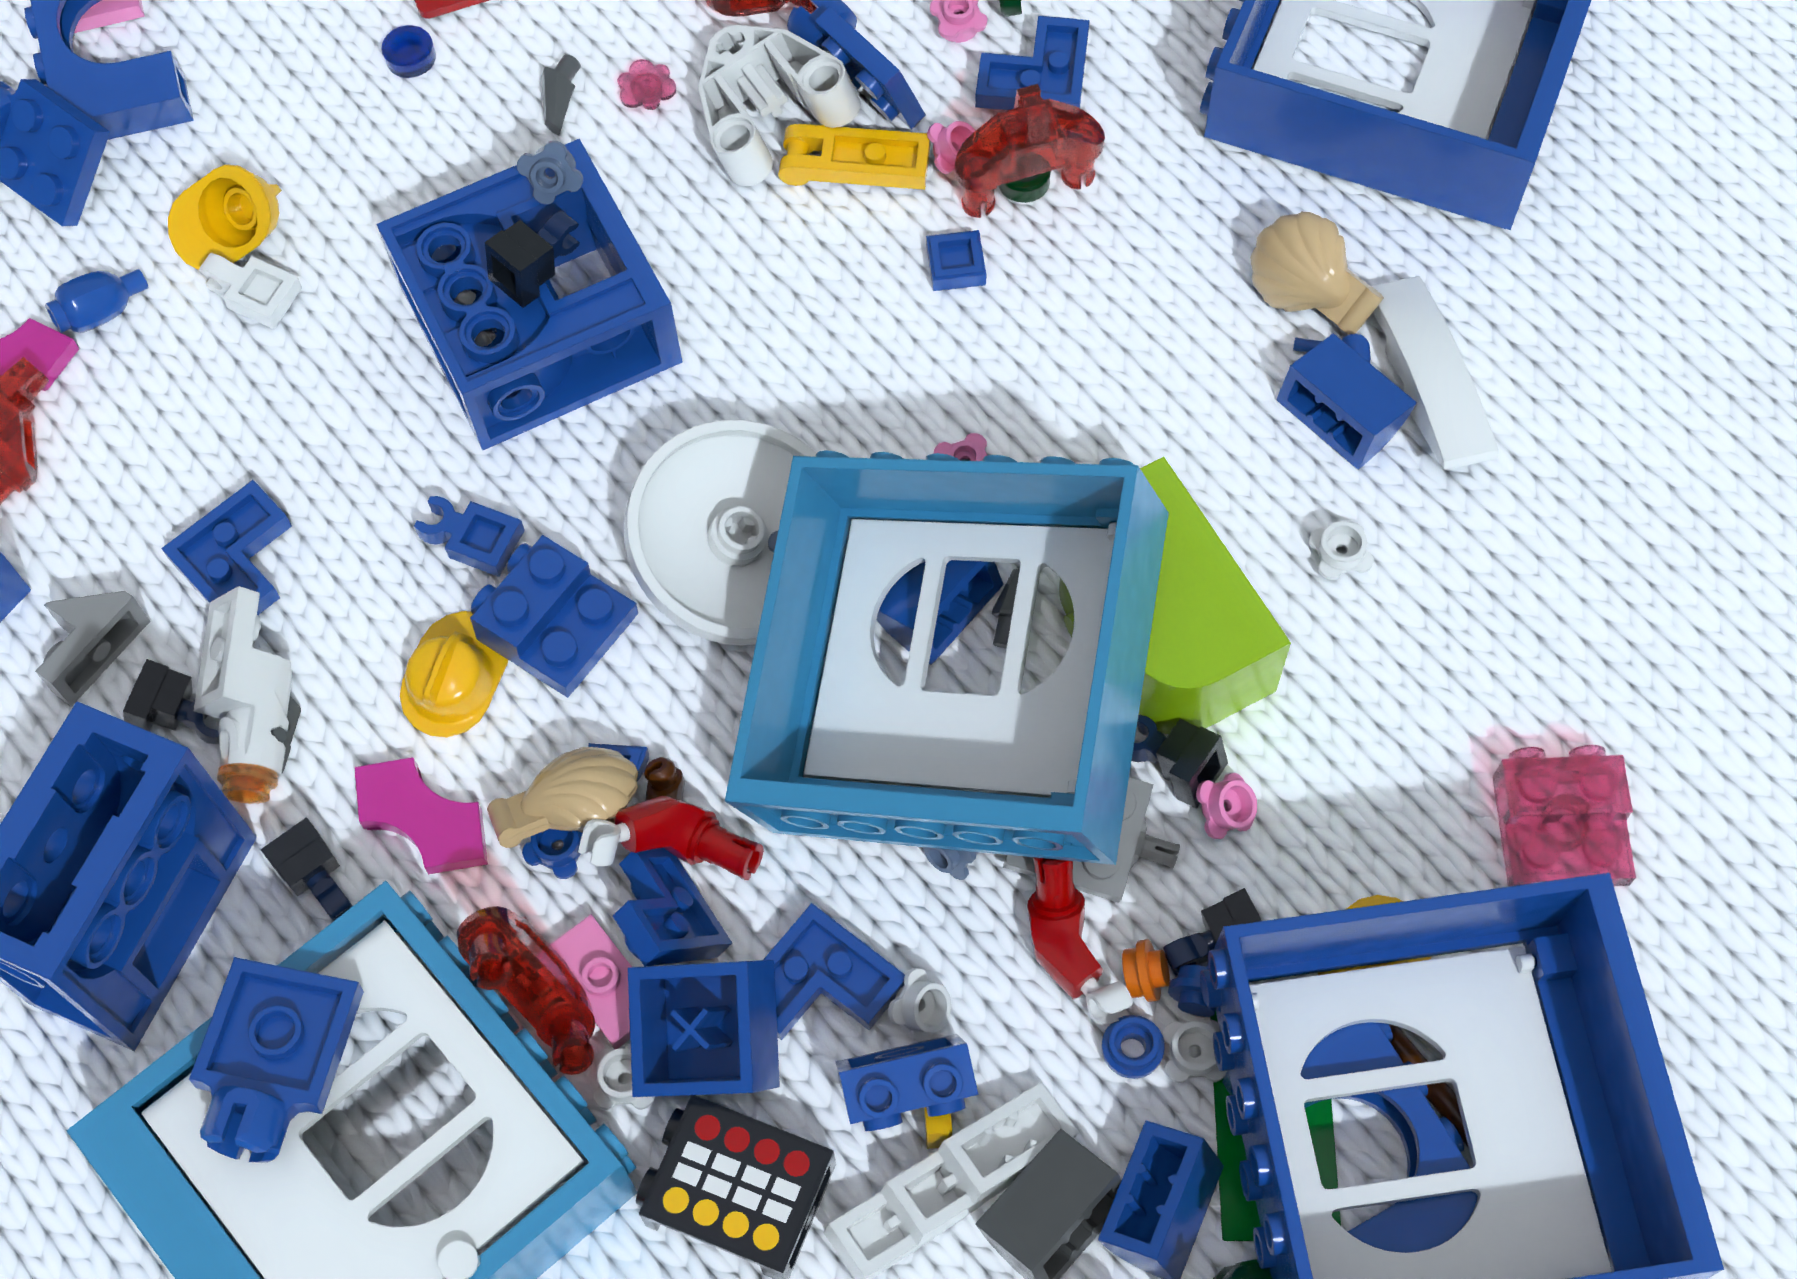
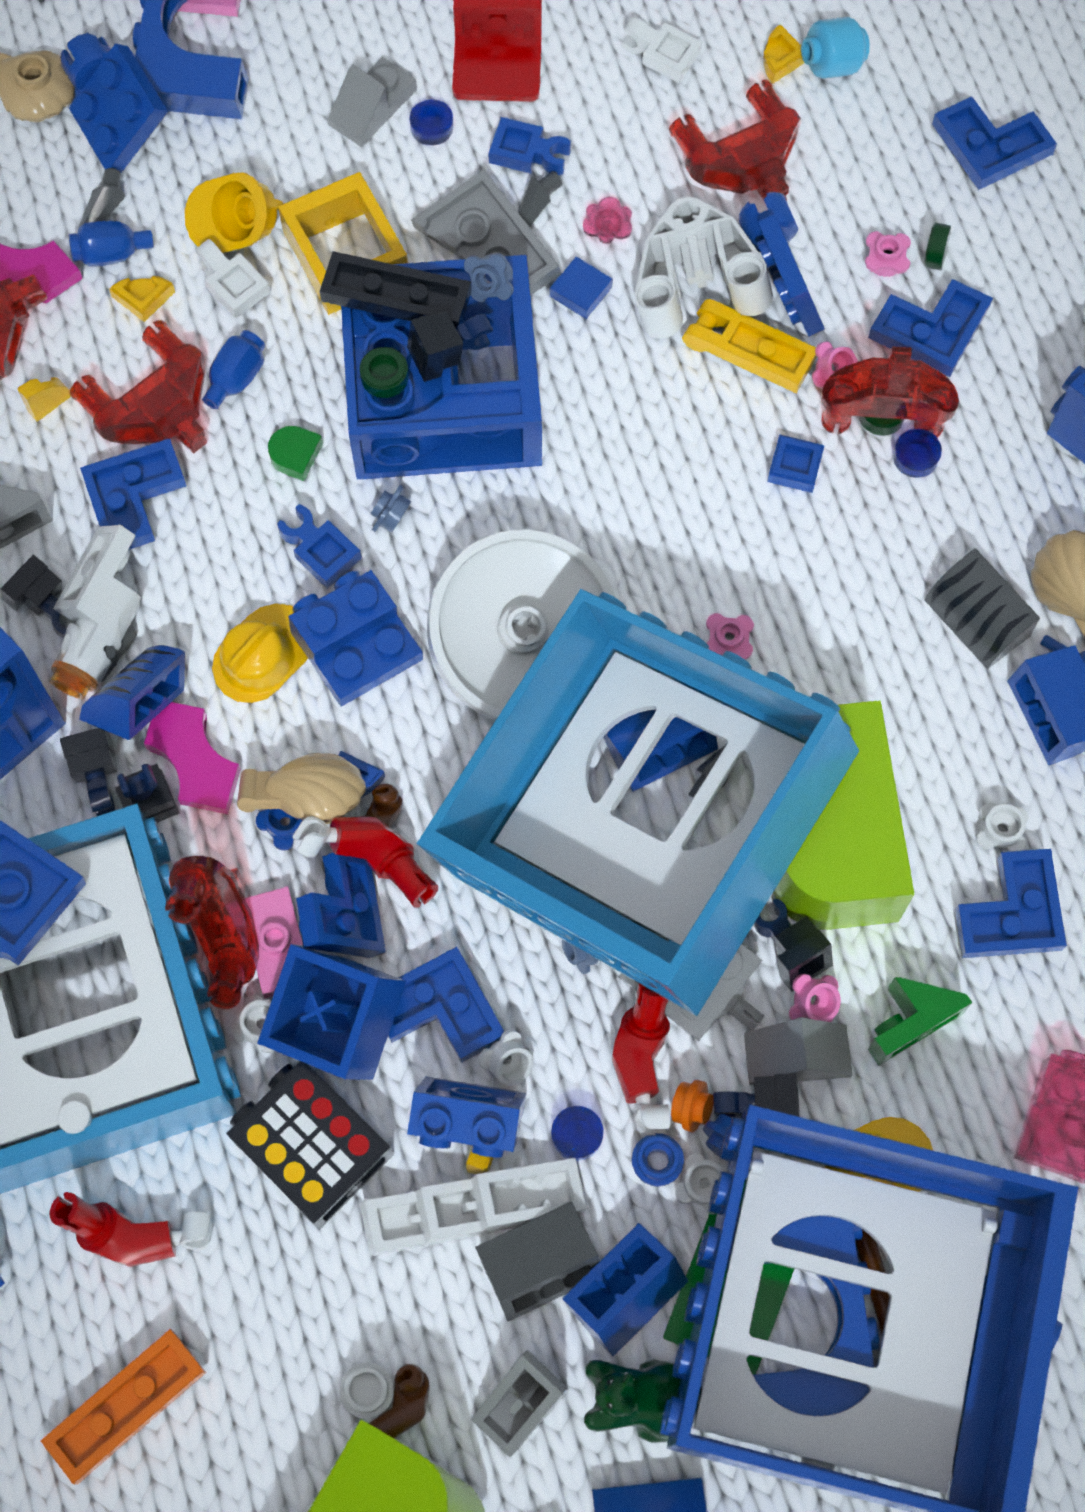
camera: 20 degrees right, 5 degrees up
(70, 254) = (104, 198): none -> dark grey bar
(85, 489) = (43, 396): none -> yellow tile
(156, 342) = (142, 295): none -> yellow tile
(223, 451) = (159, 404): none -> clear red connector
(295, 379) = (234, 367): none -> blue plant
(330, 51) = (369, 100): none -> light grey slope
(330, 178) = (330, 208): none -> yellow window
(330, 765) = (137, 692): none -> blue brick
(387, 864) = (149, 791): none -> black piece
(399, 444) = (294, 450): none -> green tile
(446, 222) = (392, 289): none -> black plate
(474, 313) = (384, 372): none -> dark green tile
(505, 125) = (484, 222): none -> light grey wing
(520, 40) = (522, 145): none -> blue plate
(535, 466) = (390, 509): none -> sand blue plate
(646, 163) = (581, 287): none -> blue tile
(1031, 1054) = (577, 1133): none -> clear blue tile
(1079, 204) = (917, 453): none -> clear blue tile
(1219, 334) = (982, 609): none -> dark grey brick
(1229, 860) = (801, 1047): none -> light grey slope
(1346, 771) = (926, 1011): none -> green slope
(1408, 631) = (1025, 920): none -> blue plate

